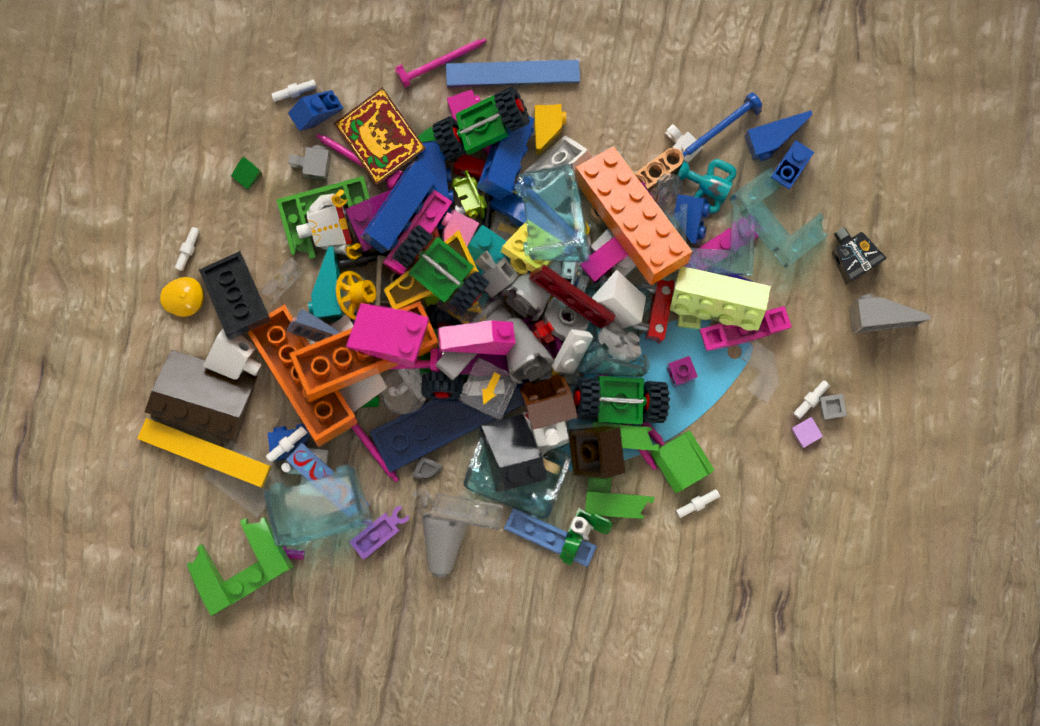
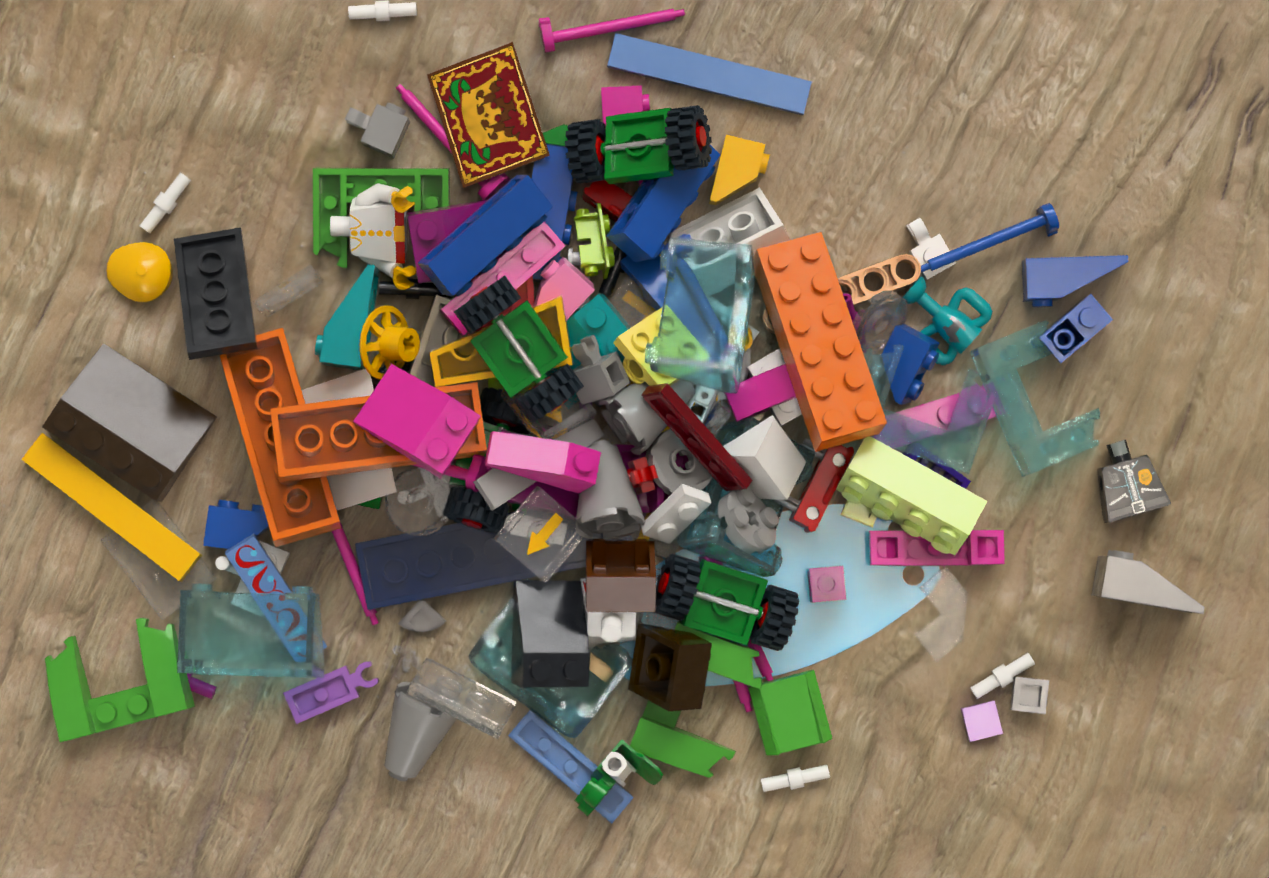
camera: 15 degrees right, 5 degrees up
(232, 356) = (188, 382): white torso -> none
(246, 173) = (279, 115): green slope -> none
(286, 444) = (231, 530): white bar -> none
(310, 327) = (312, 374): sand blue slope -> none
(314, 109) = (405, 49): blue slope -> none

